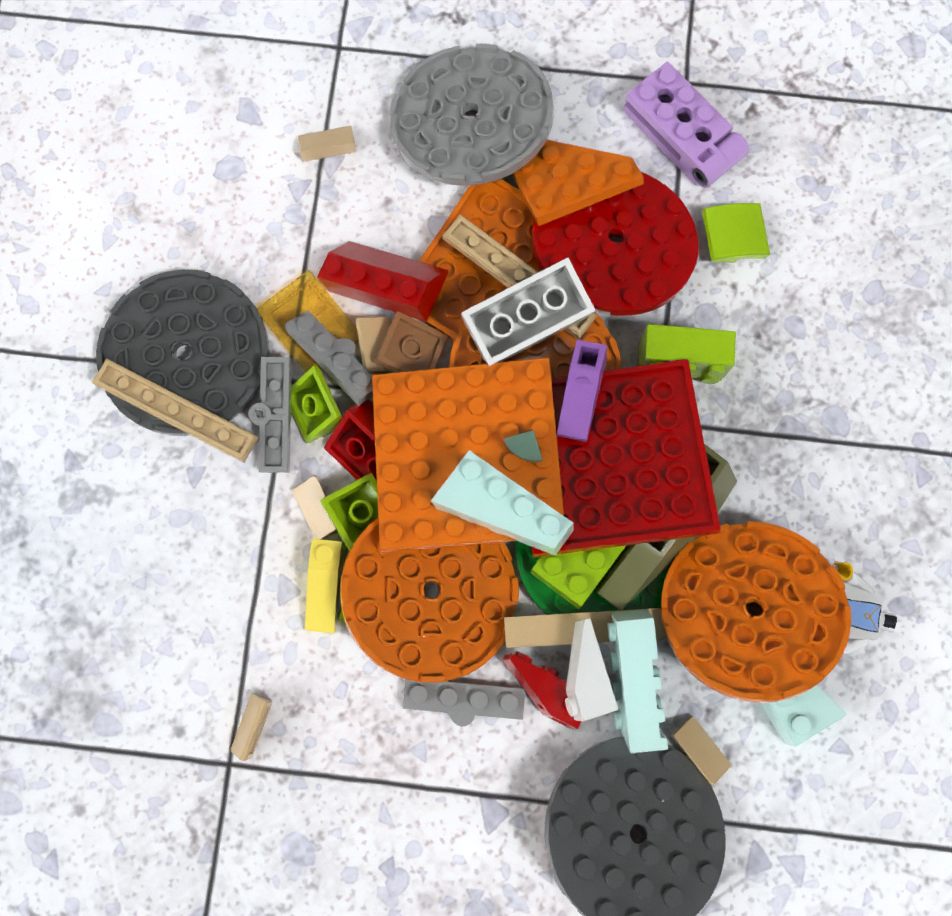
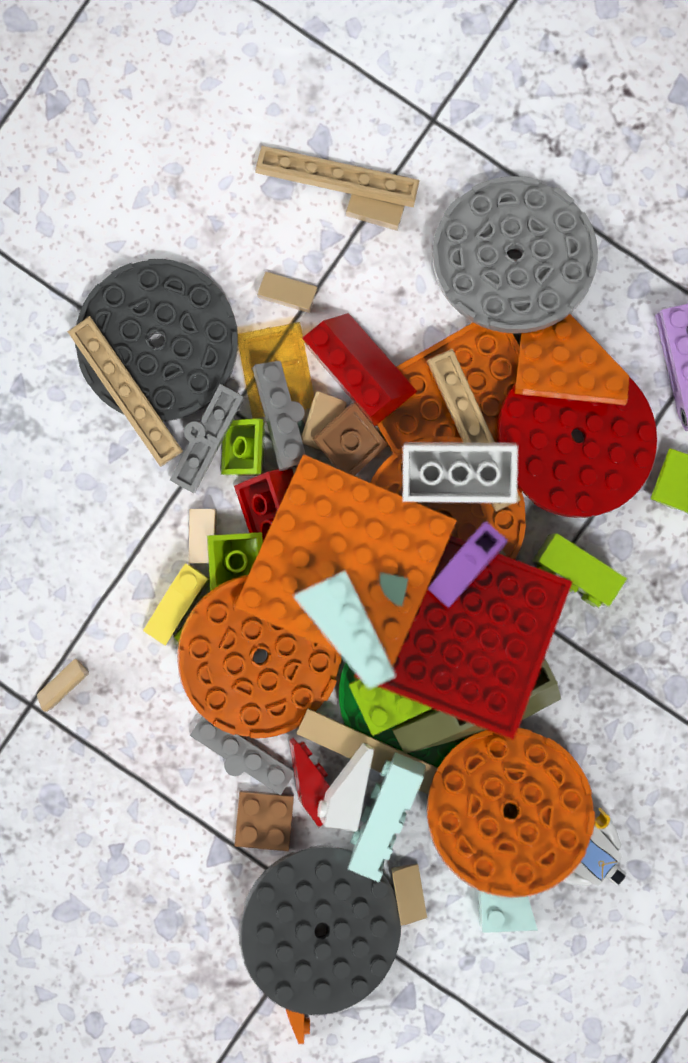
camera: 30 degrees right, 10 degrees up
(277, 131) = (337, 176): none -> tan tile
(283, 251) = (287, 292): none -> tan slope
(520, 755) = (264, 820): none -> medium nougat plate

